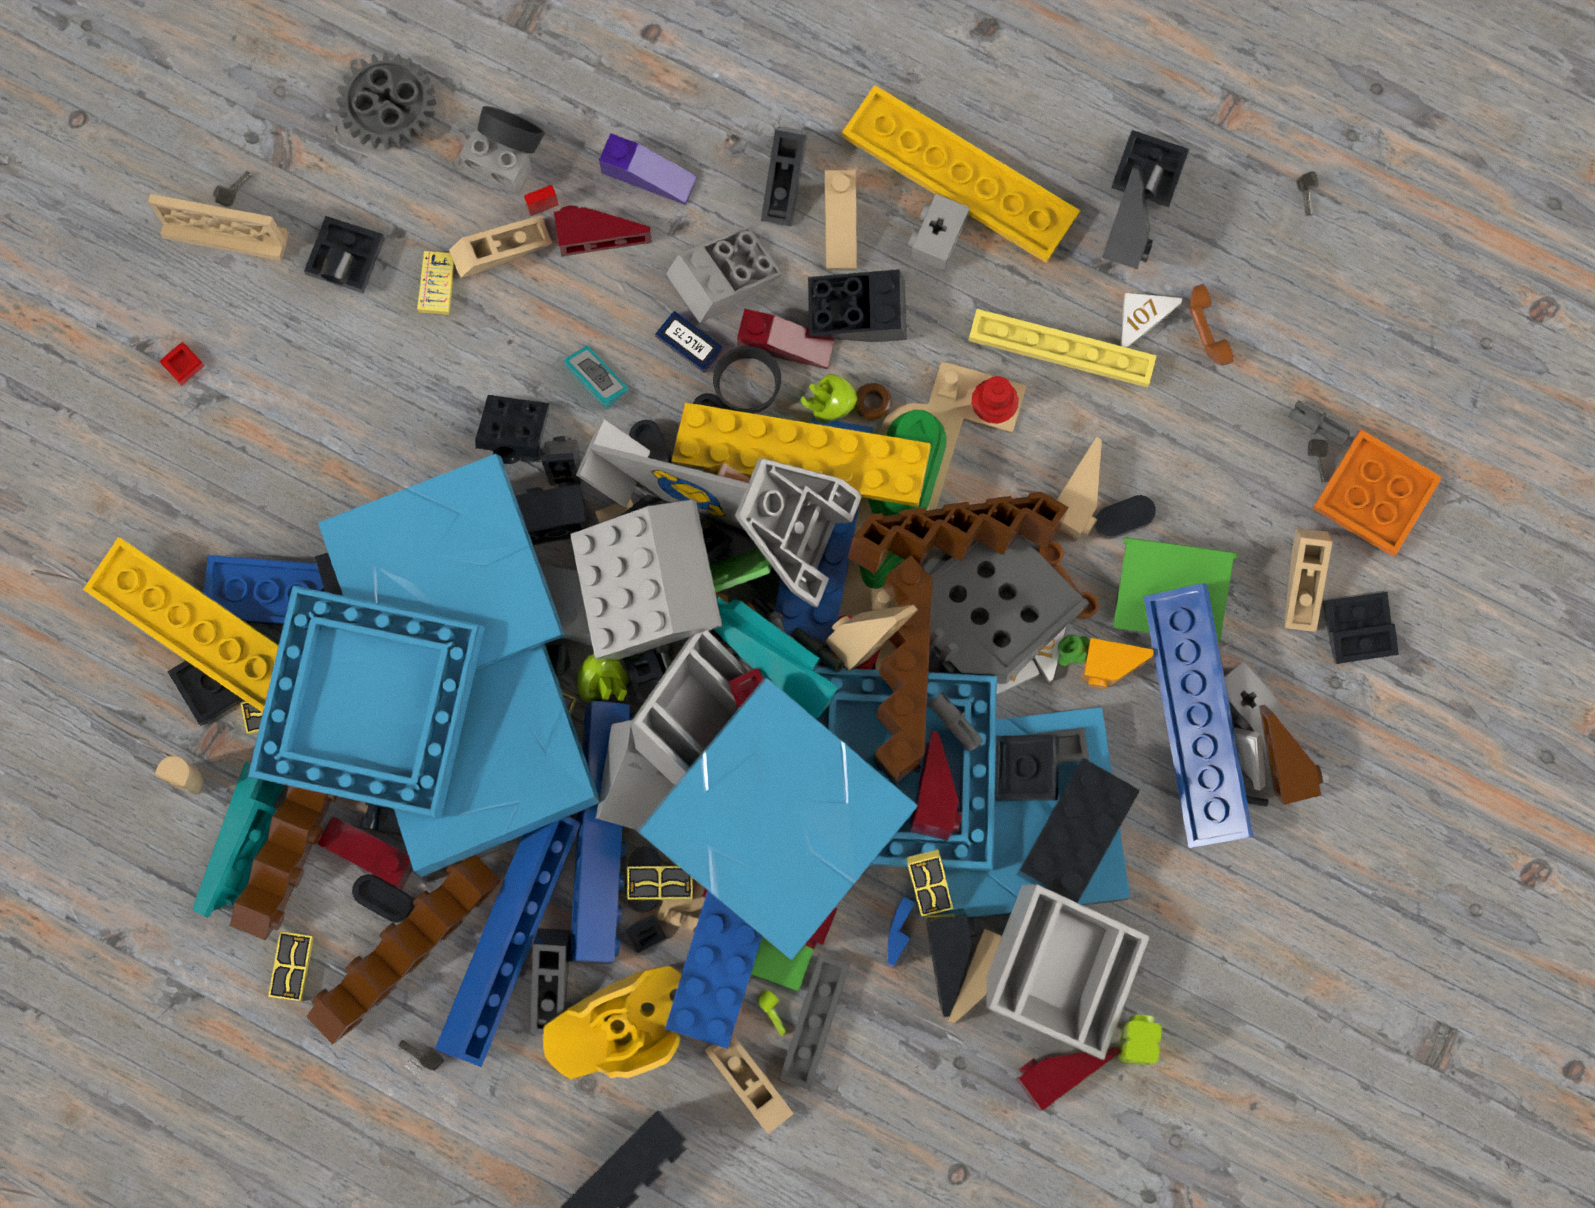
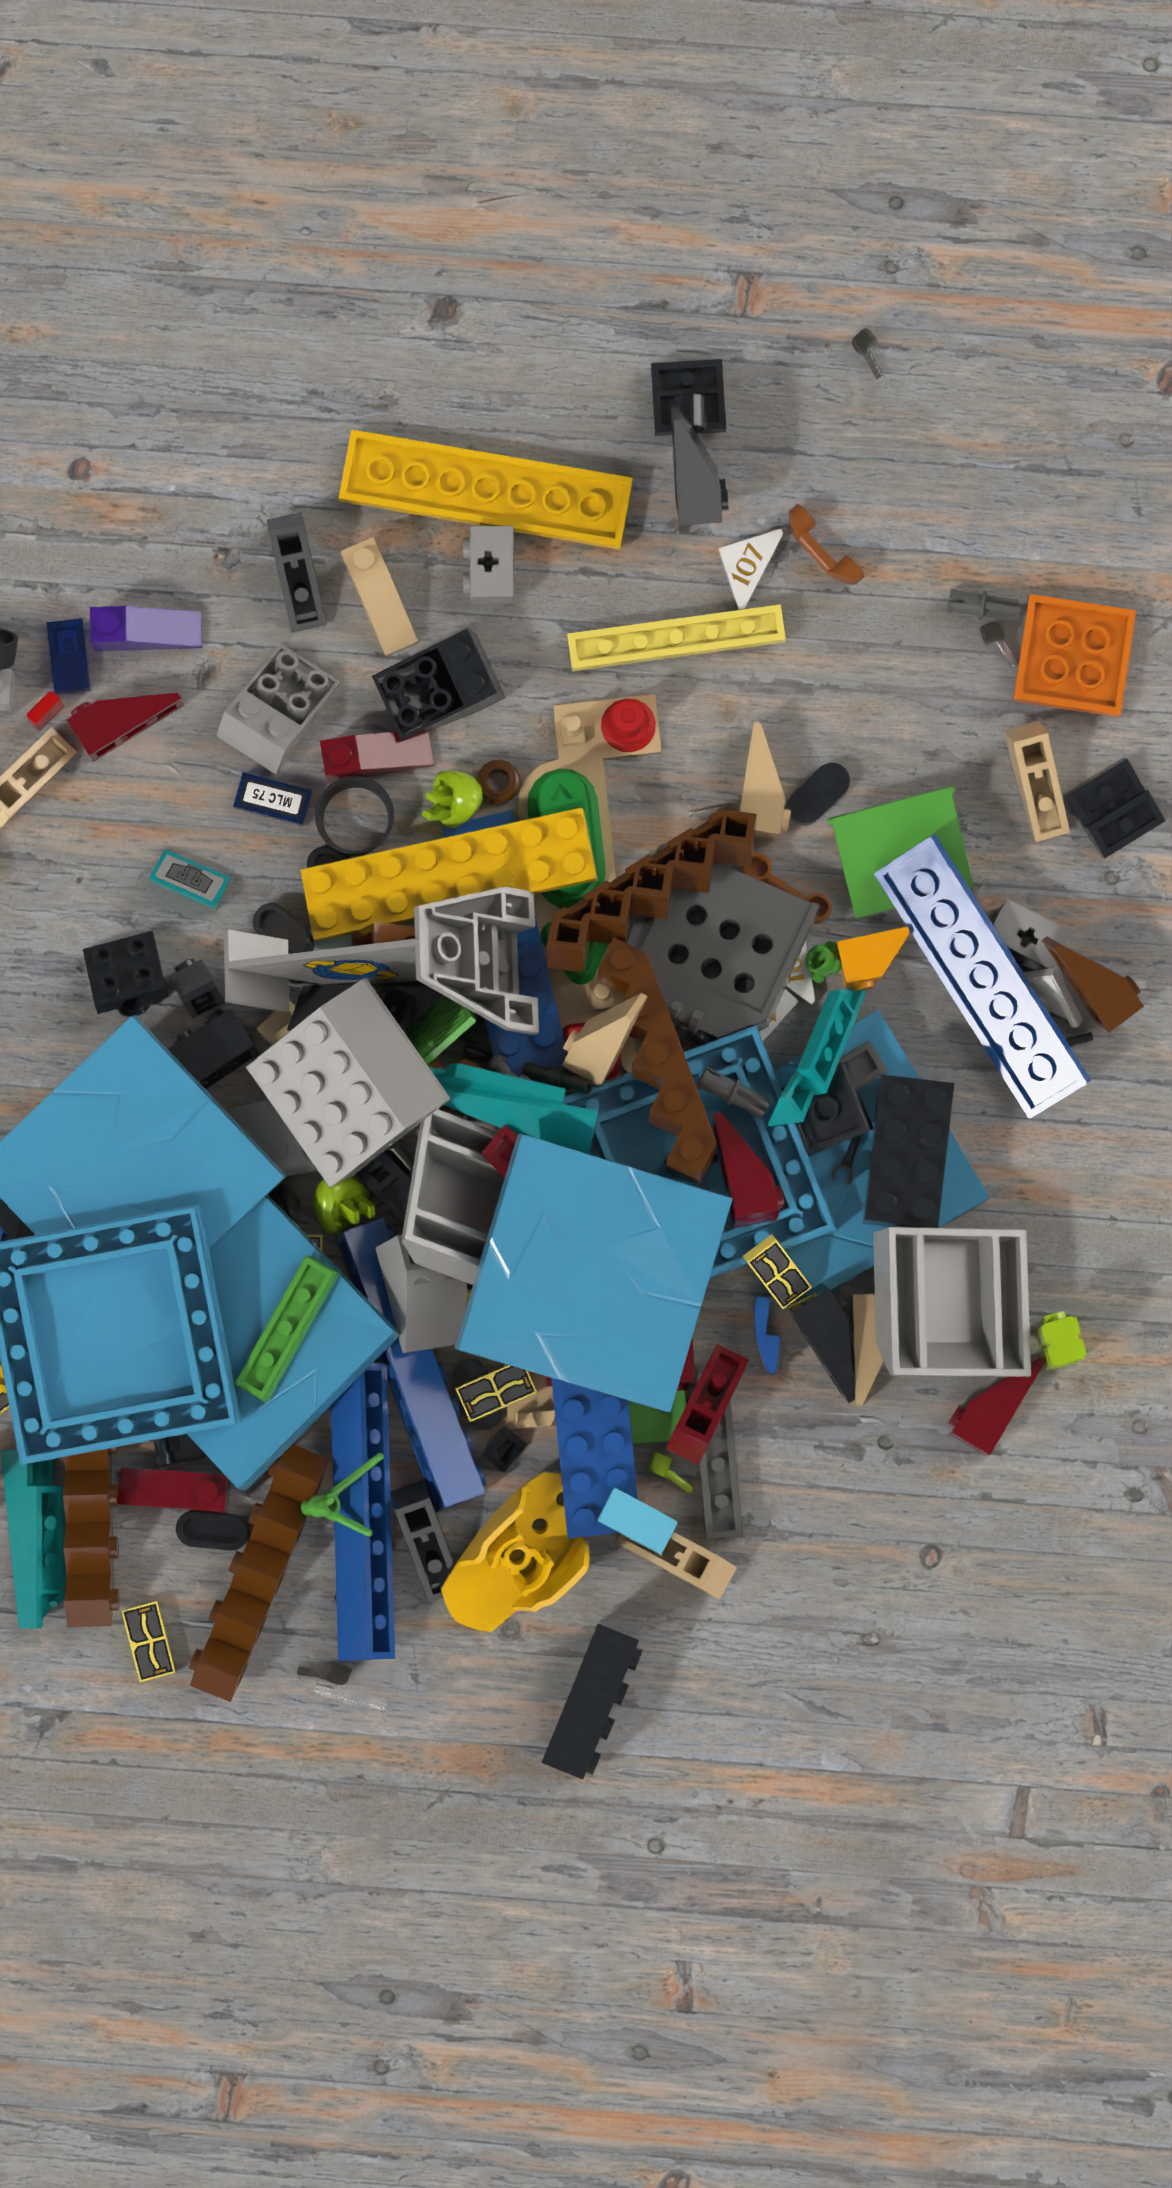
camera: 20 degrees left, 5 degrees up
(482, 916) = (328, 1504): none -> bright green plant
(510, 757) = (287, 1328): none -> bright green tile
(579, 168) = (68, 656): none -> clear blue tile
(727, 1039) = (637, 1521): none -> medium azure slope
(826, 968) = (707, 1404): none -> dark red slope
(1026, 817) = (848, 1159): none -> black hand
(1038, 722) = (820, 1056): none -> teal wedge

